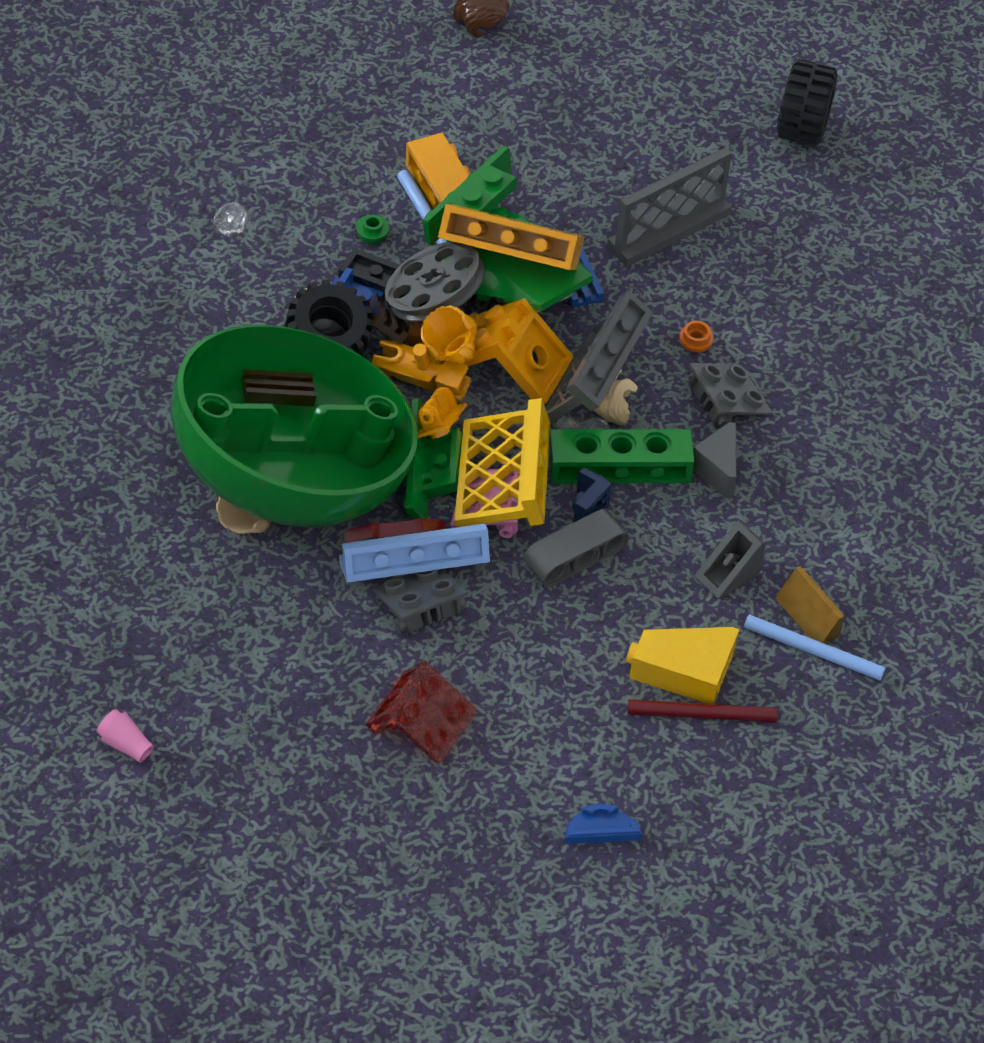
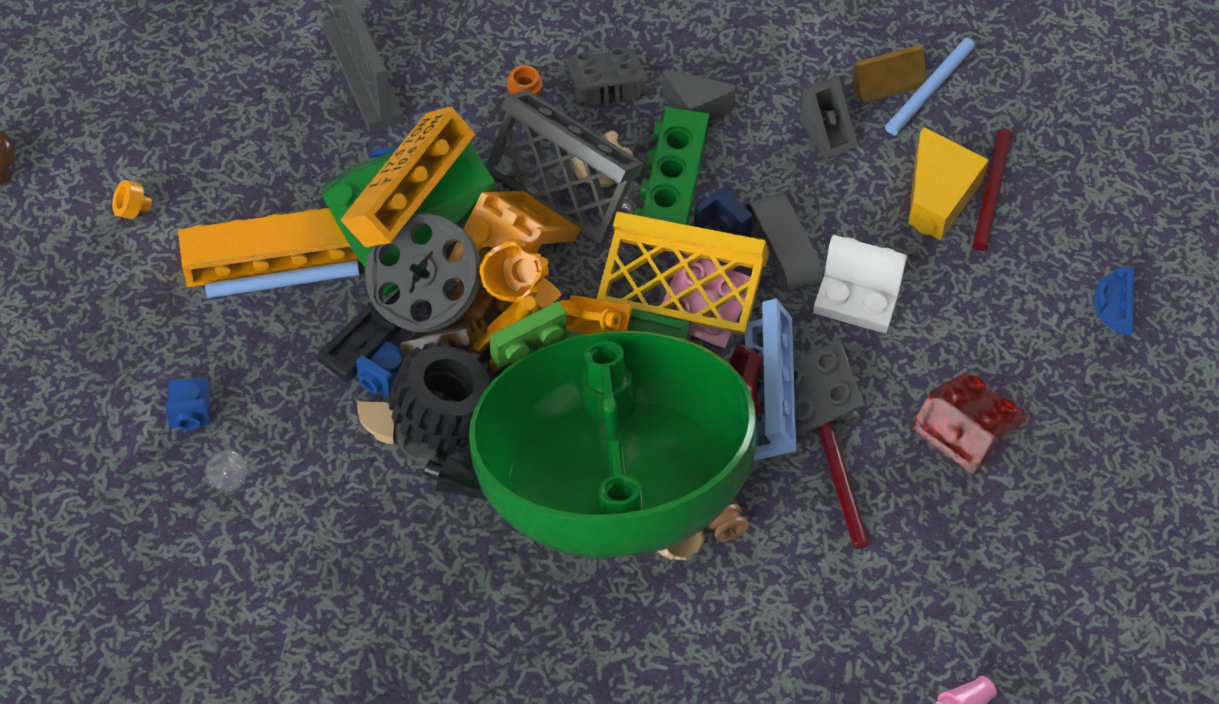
camera: 75 degrees left, 5 degrees up
(263, 546) = (729, 524): none -> medium nougat bush
(278, 388) = (533, 430): dark brown tile -> none
(288, 185) = (188, 403): none -> blue bracket
(328, 628) = (843, 486): none -> dark red bar
(372, 229) = (287, 342): green plate -> none
(397, 364) = (528, 335): none -> bright green plate
(473, 106) = (130, 199): none -> light orange tile
(480, 191) = (310, 205): green bracket -> none
(537, 610) = (860, 283): none -> white bracket

